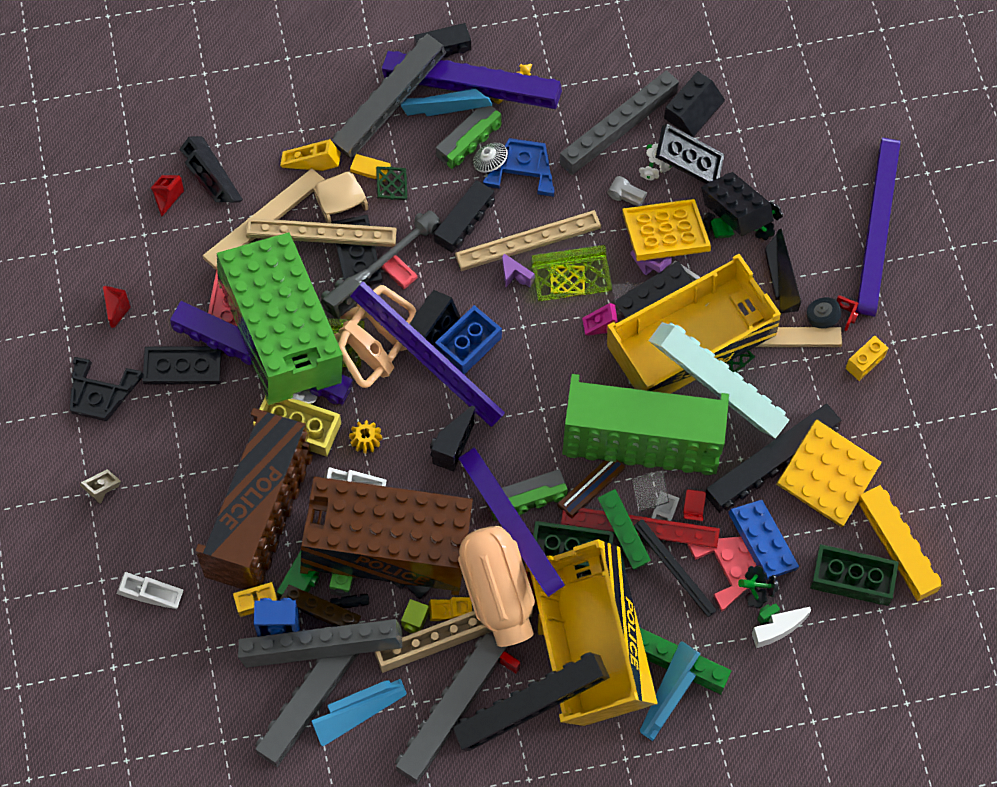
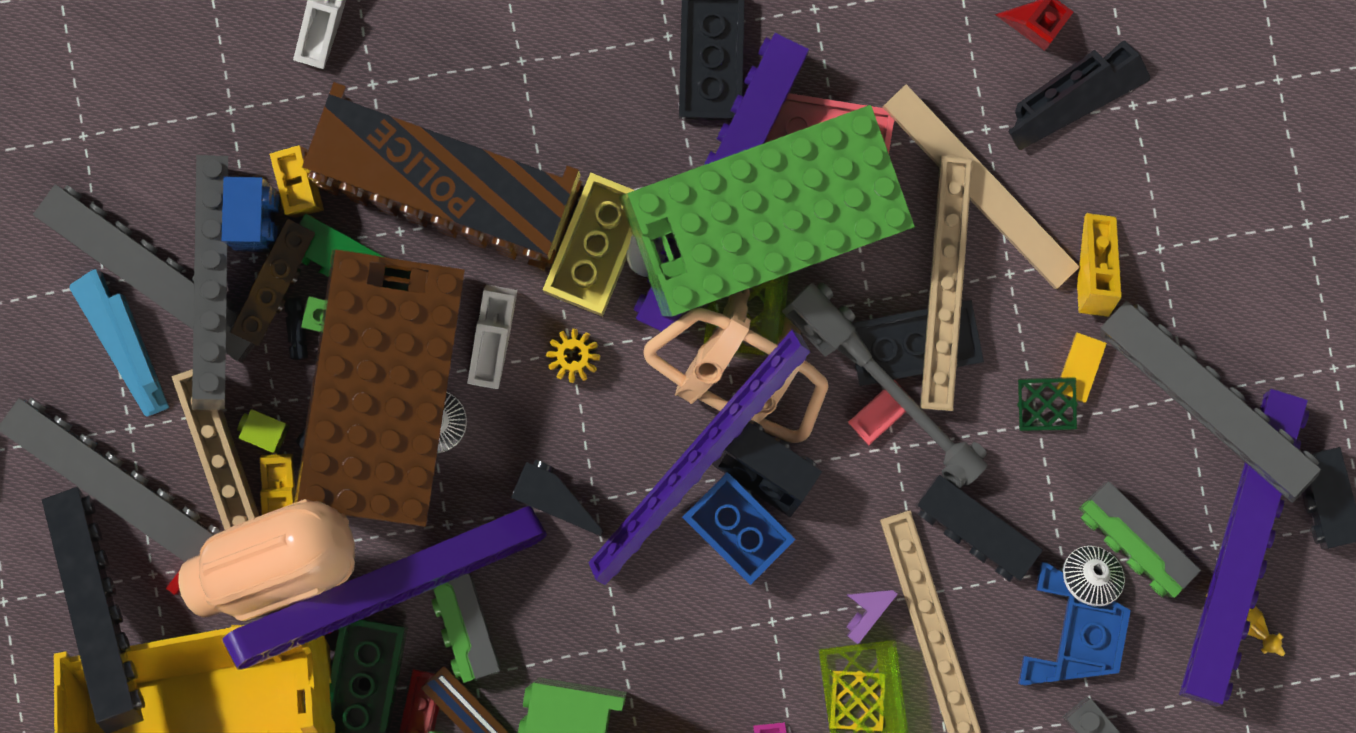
camera: 95 degrees right, 20 degrees up
(339, 194) = (1018, 314): tan piece -> none
(446, 103) = (1202, 500): dark azure wedge -> none

